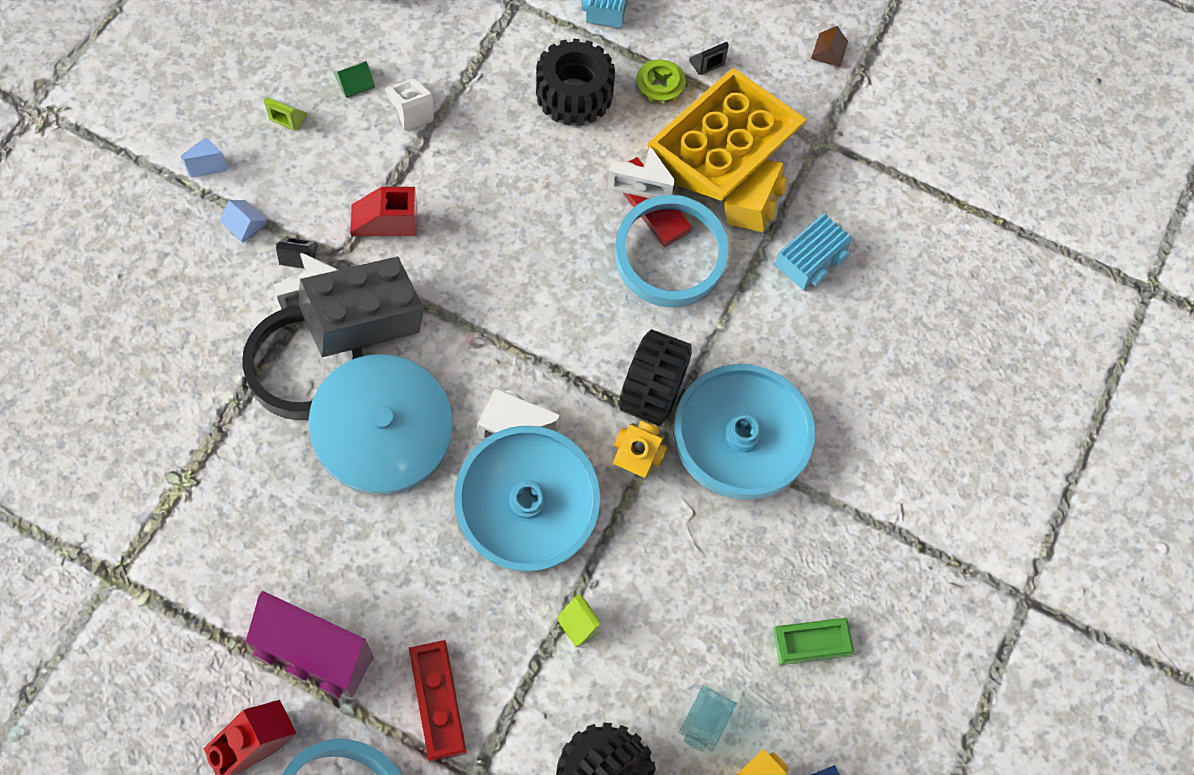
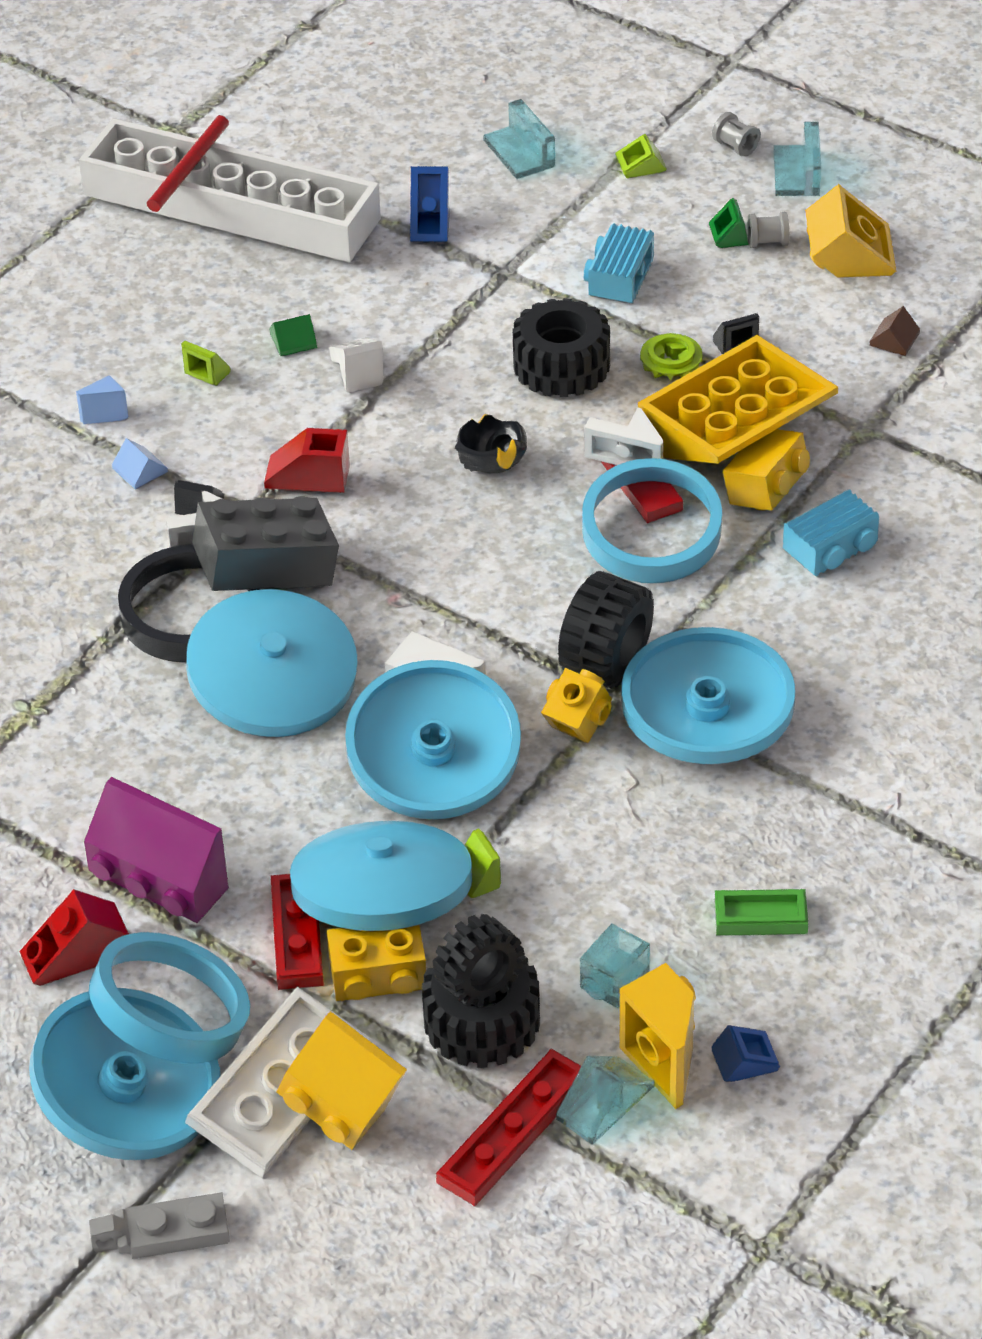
camera: 15 degrees right, 20 degrees down
(503, 649) = (381, 875): none -> medium azure dish
(511, 734) = (375, 962): none -> yellow brick
(532, 183) = (491, 444): none -> black hair

